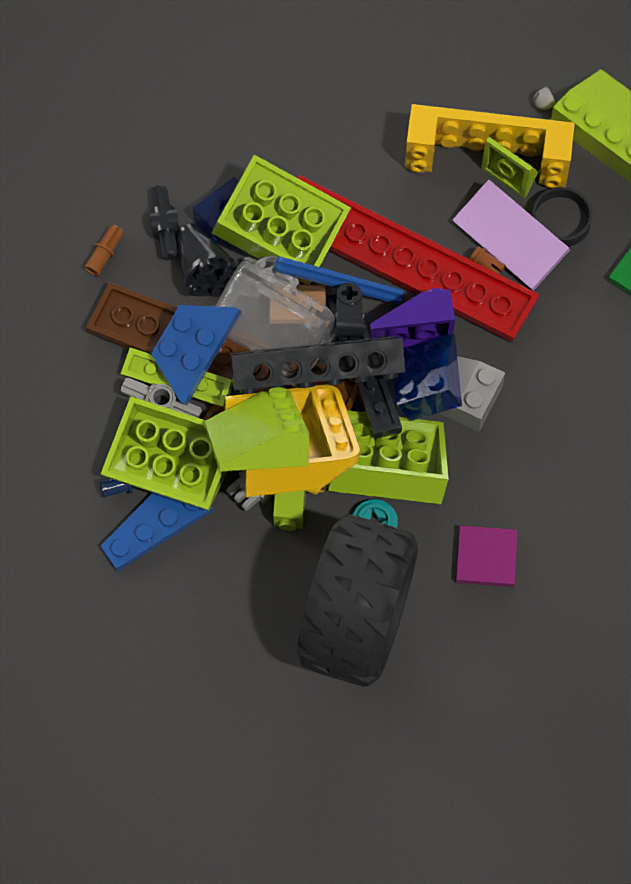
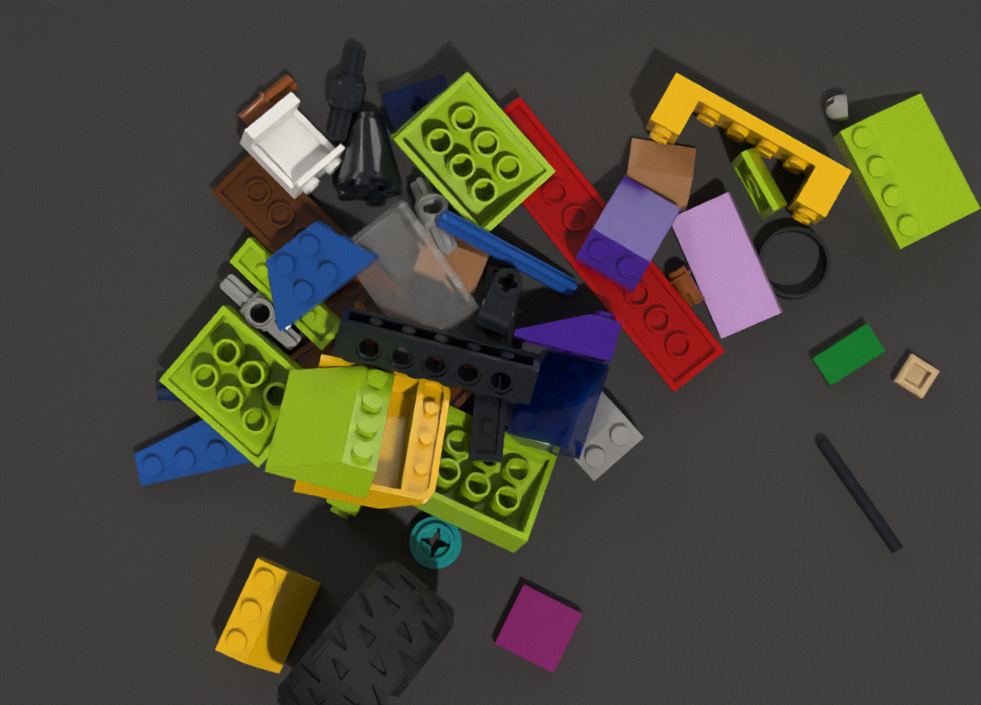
camera: 20 degrees right, 20 degrees up
(136, 272) = (291, 147): none -> white panel
(262, 627) = (268, 616): none -> yellow slope
(425, 239) = (627, 234): none -> slope
(430, 195) = (662, 169): none -> medium nougat slope

